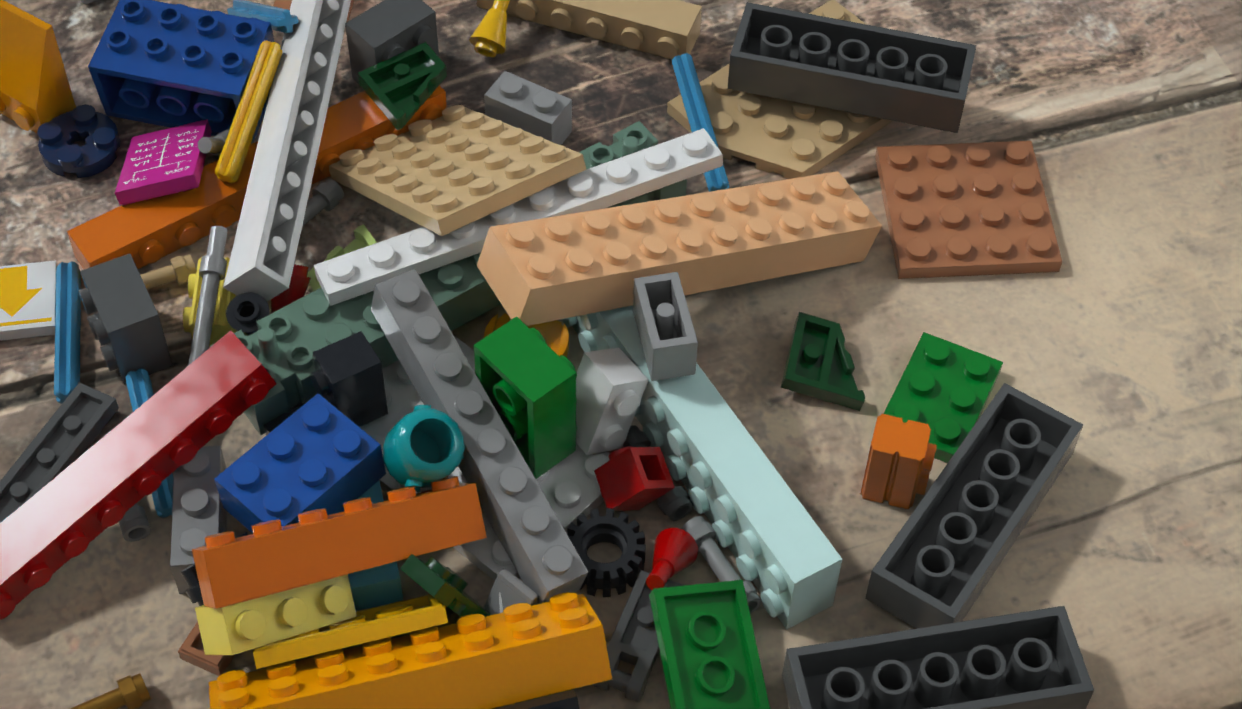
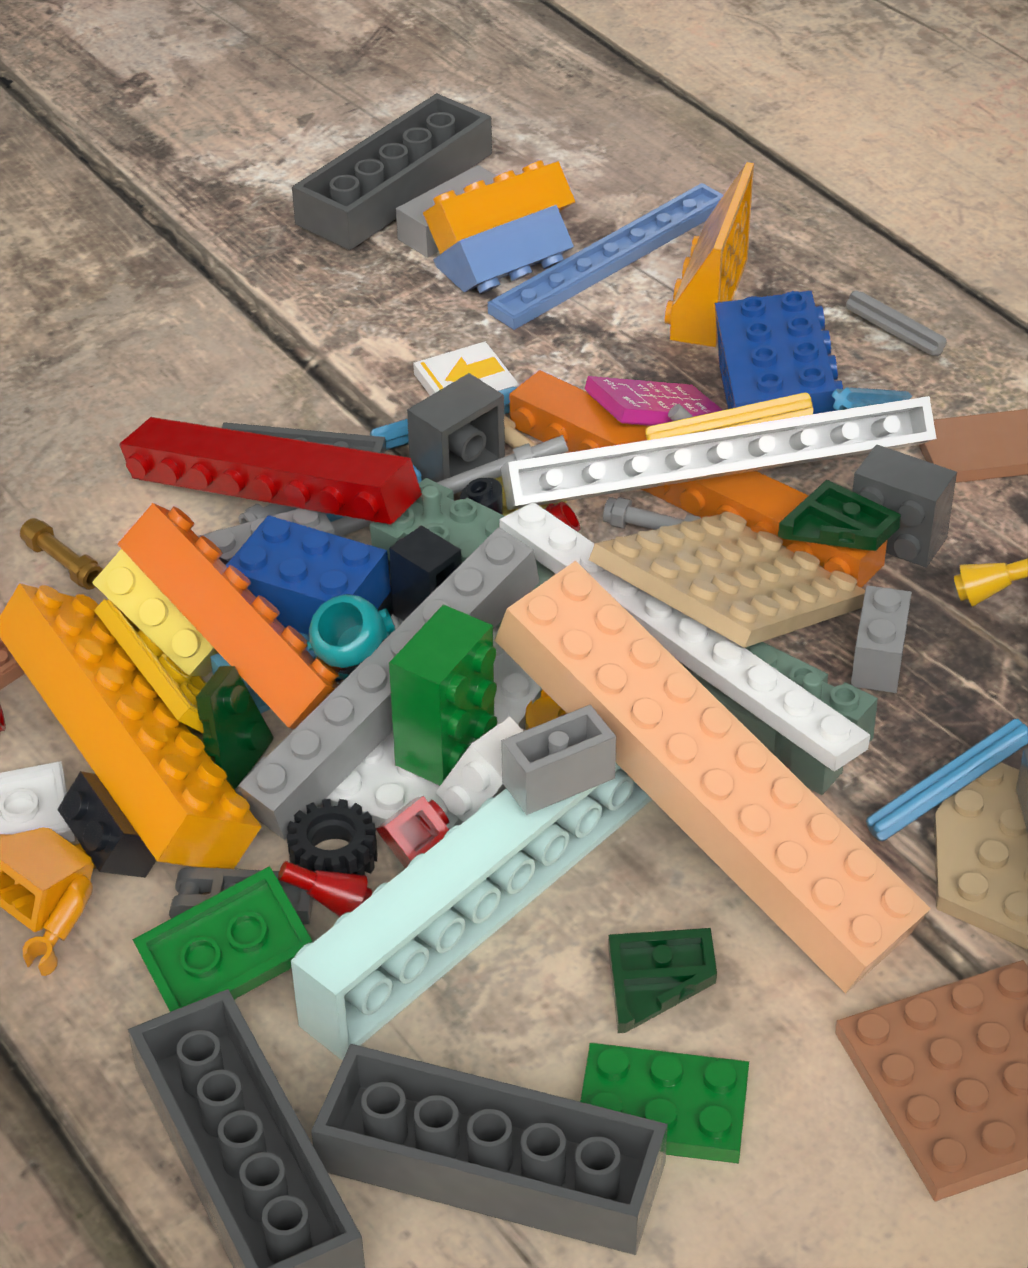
camera: 75 degrees right, 10 degrees down
(73, 126) = (685, 355): dark blue plate -> none
(898, 462) = (522, 1039): orange brick -> none

